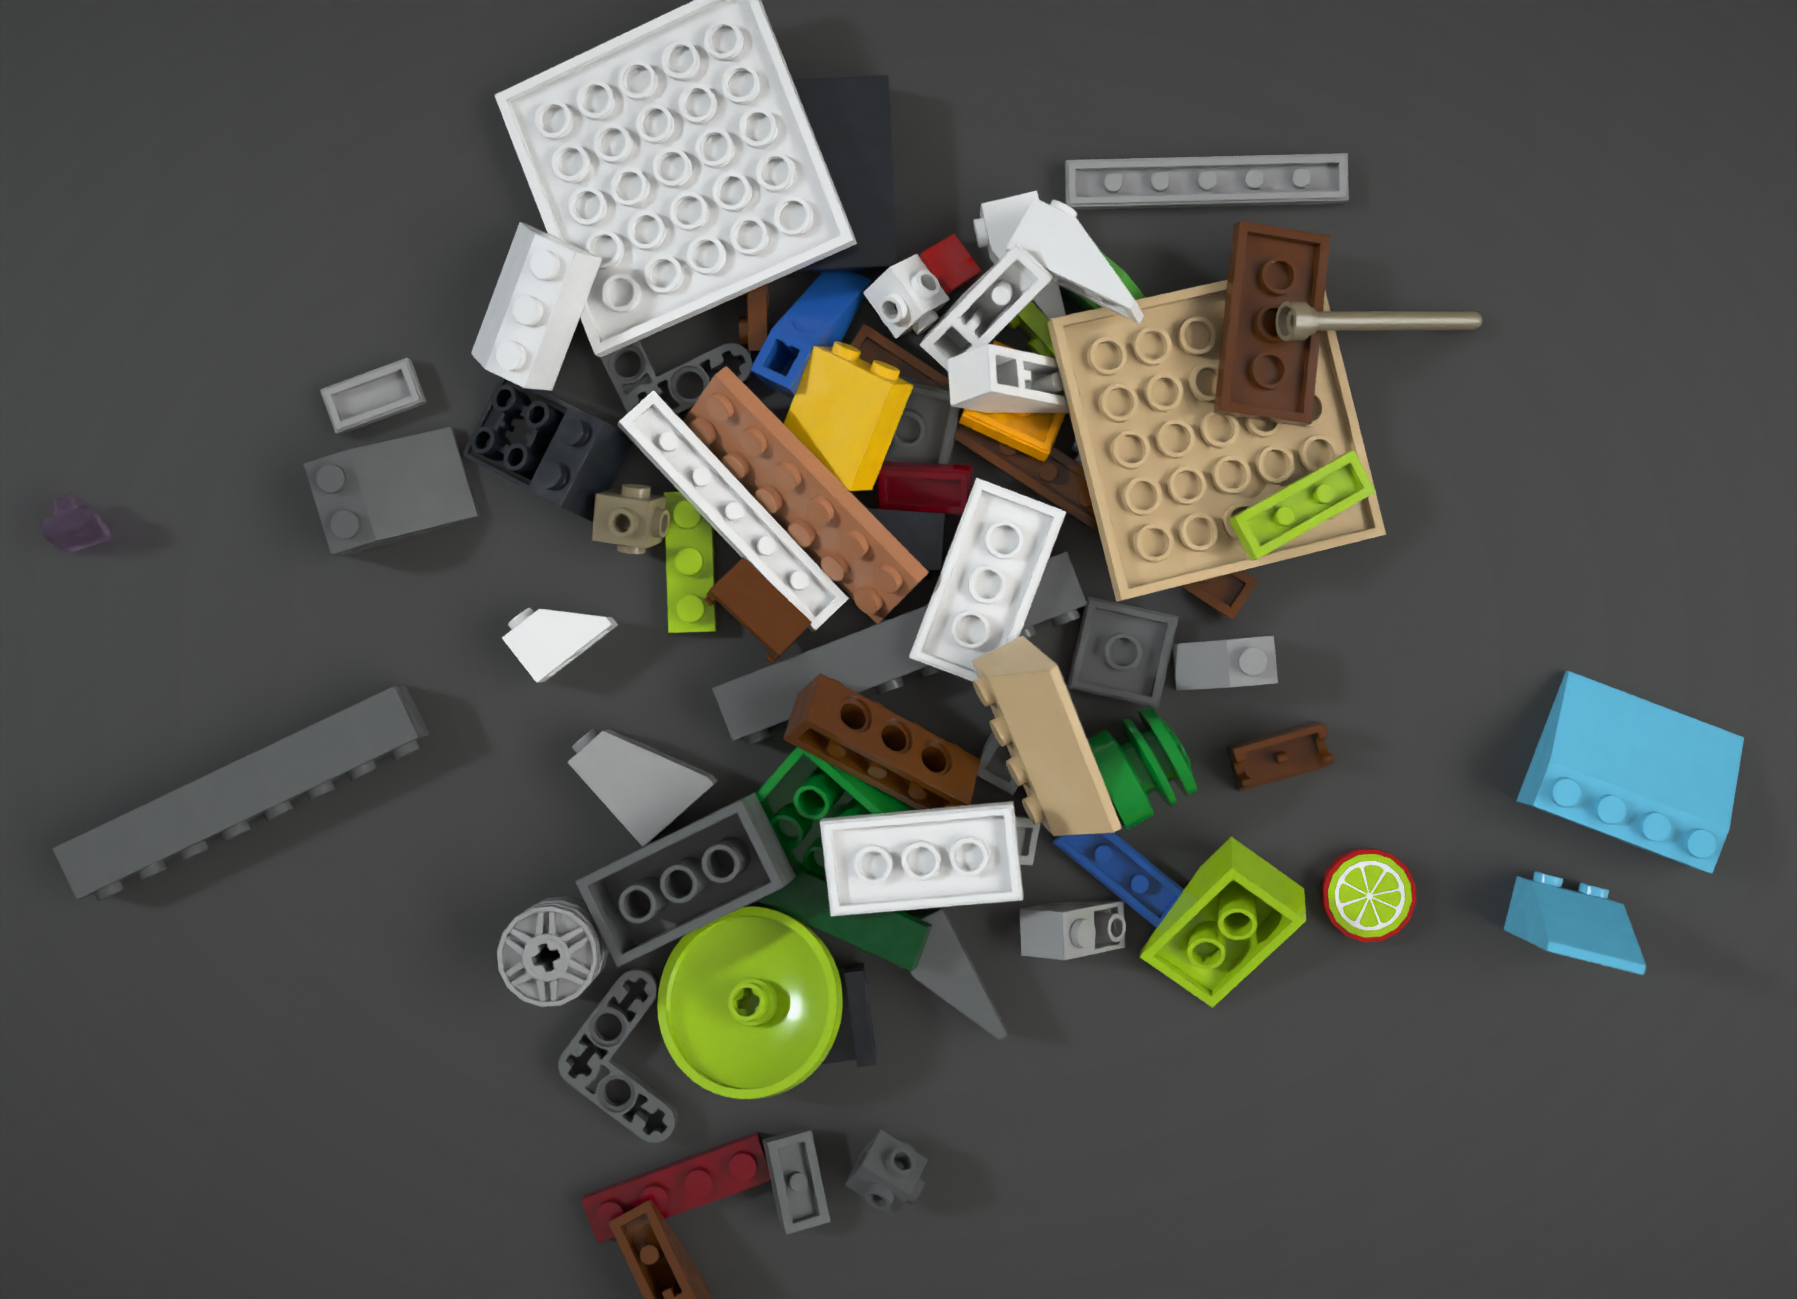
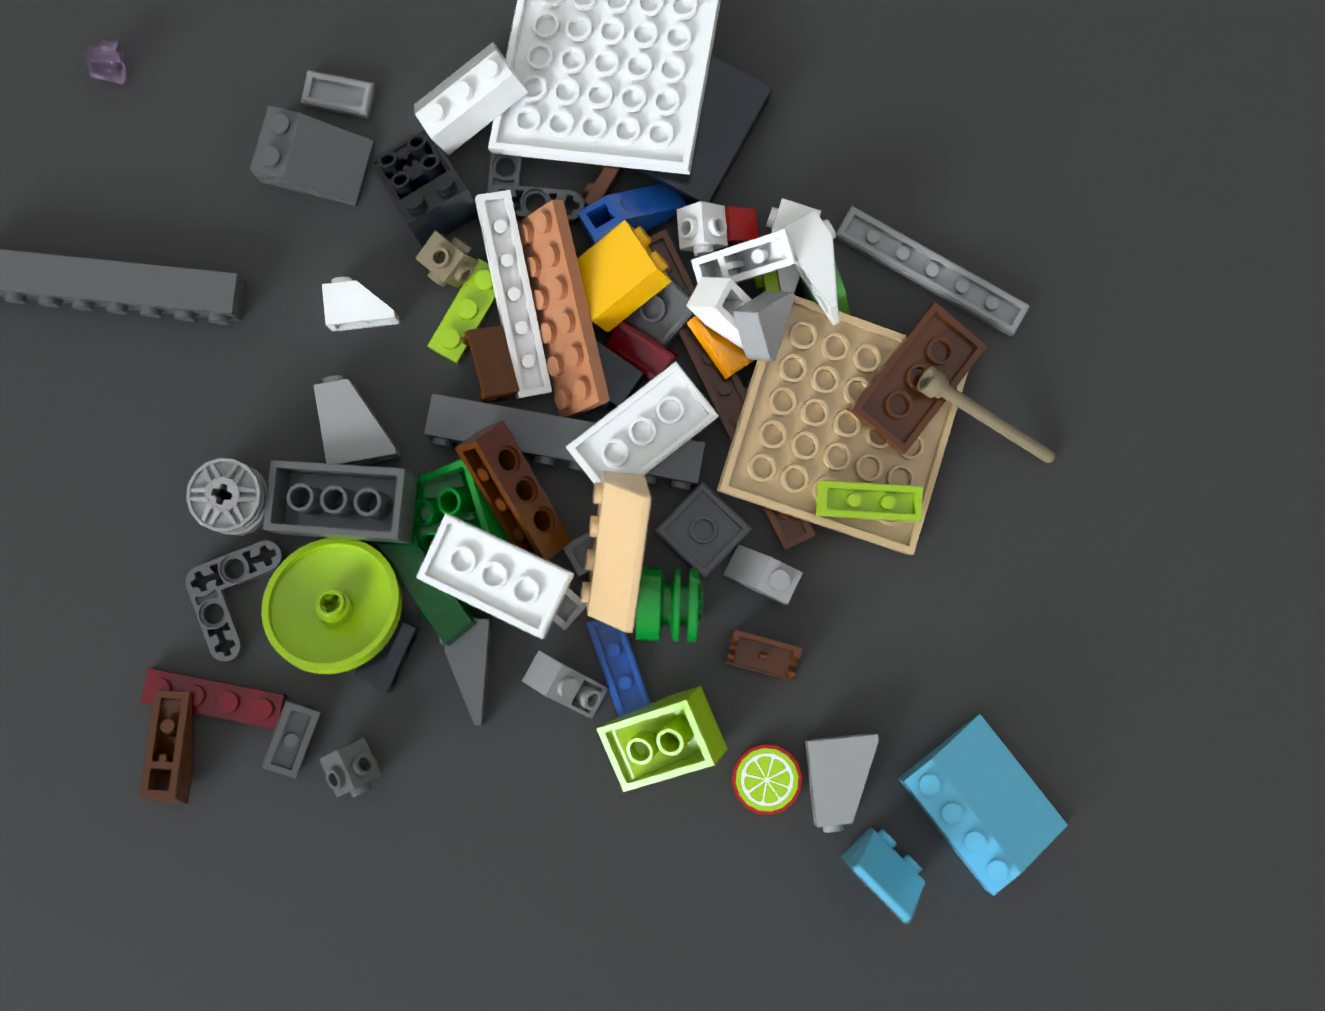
camera: 30 degrees right, 5 degrees down
(1056, 372) = (763, 323): none -> light grey slope
(1450, 842) = (838, 776): none -> light grey slope

